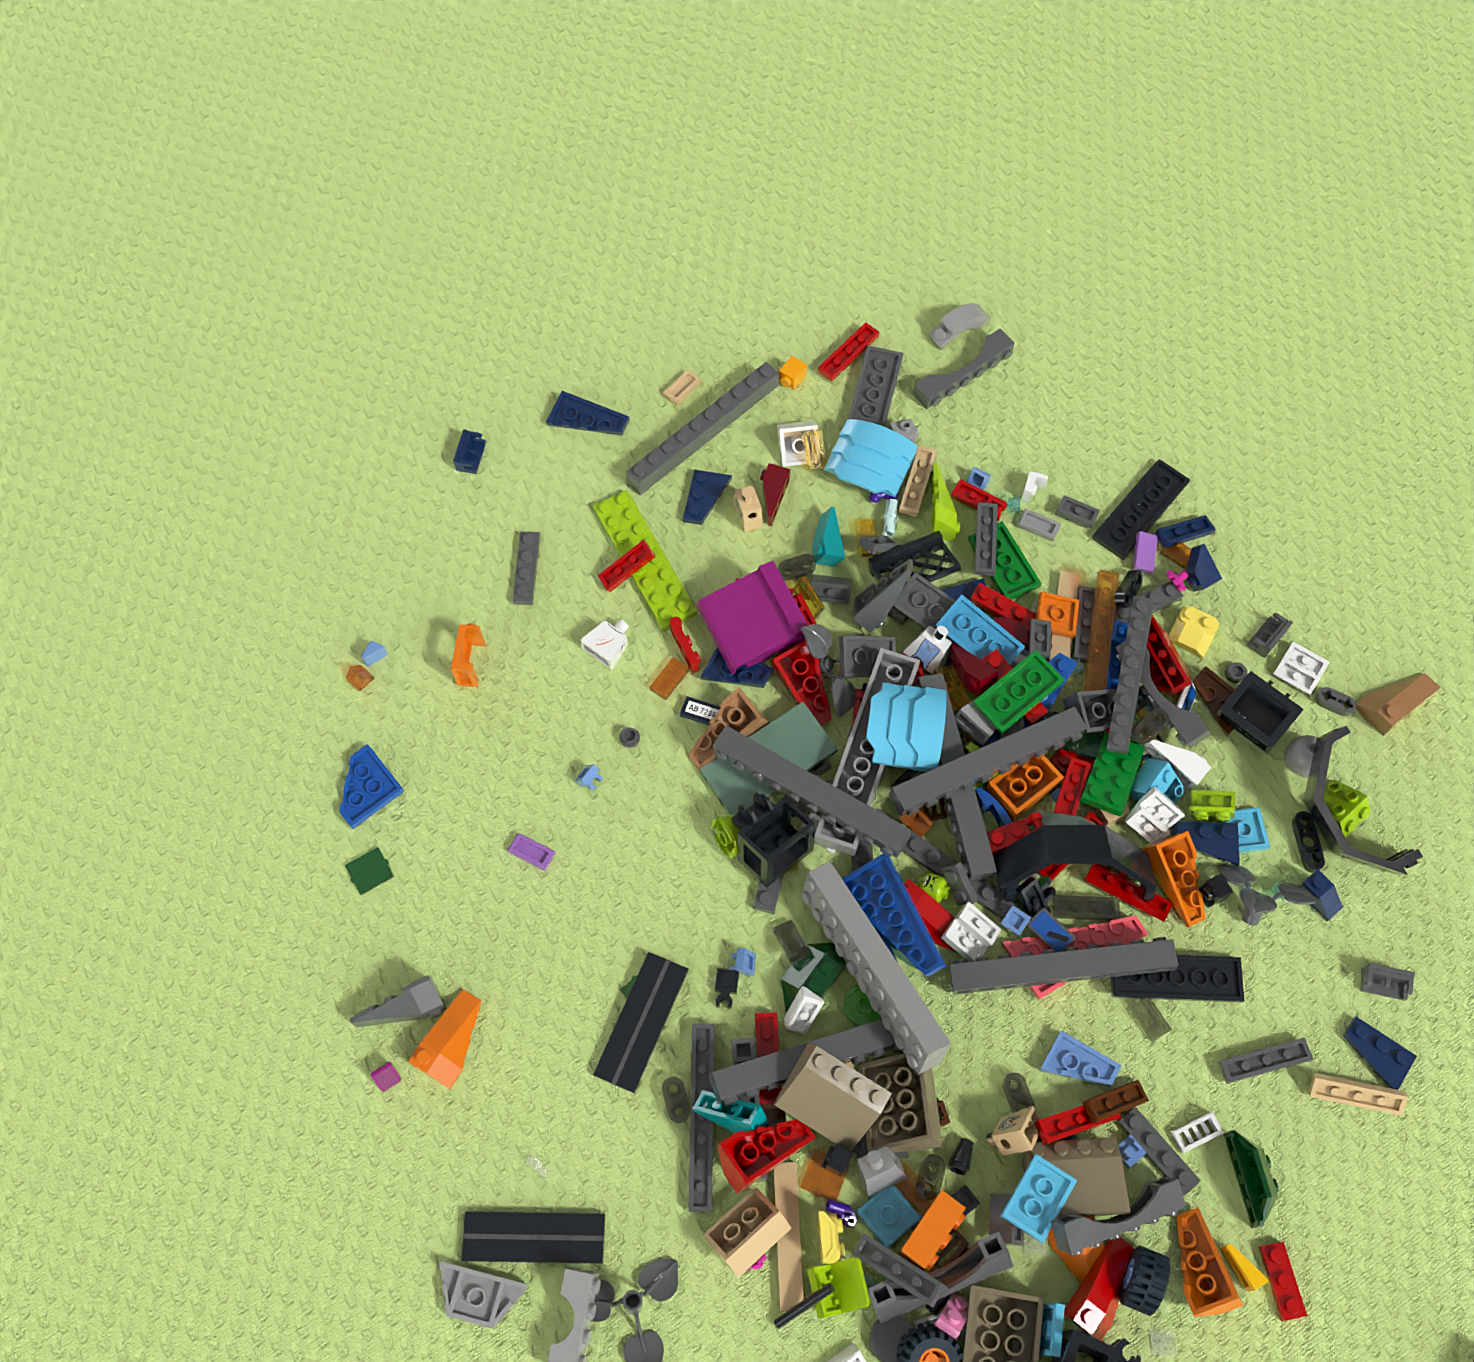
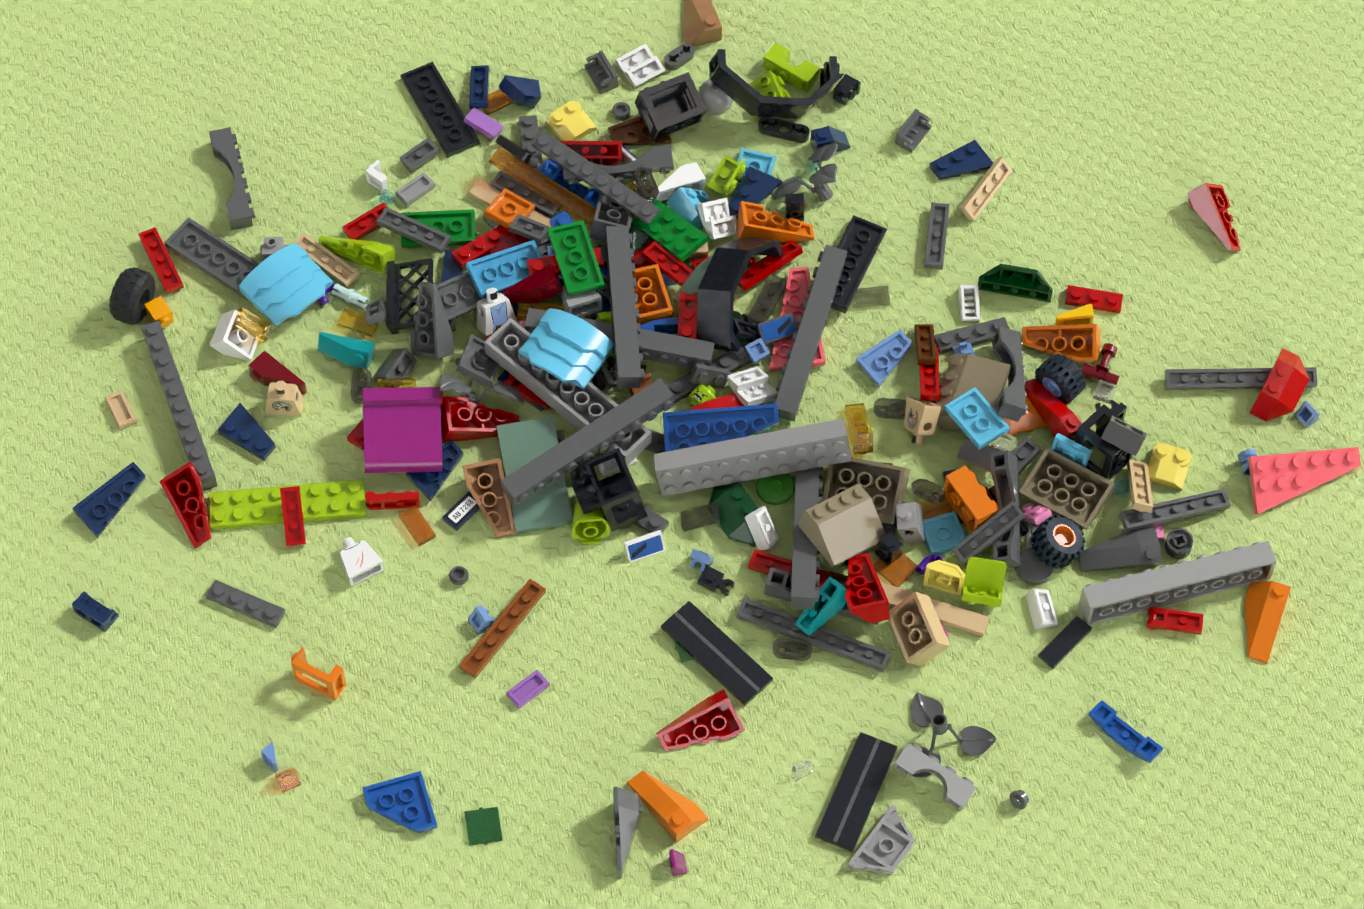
camera: 70 degrees left, 5 degrees down
(559, 1043) = (705, 722): none -> red wedge
(587, 800) = (502, 628): none -> dark orange plate
(605, 474) = (187, 498): none -> red wedge
(734, 899) = (644, 546): none -> slope
(794, 338) = (130, 294): none -> black tyre
(804, 1305) = (987, 612): black bar -> none
(958, 320) = (183, 163): light grey arch -> none
(961, 1157) = (922, 466): black cone -> none
(975, 1068) = (859, 428): none -> clear yellow slope
(978, 478) = (347, 213): medium blue slope -> none
(1029, 1271) = (1025, 453): none -> dark grey plate
(1177, 579) = (521, 111): dark pink plant -> none
(1186, 1327) = (1101, 371): none -> dark red bar
(1385, 834) = (801, 76): none -> lime arch
(1396, 887) = (846, 89): none -> black brick

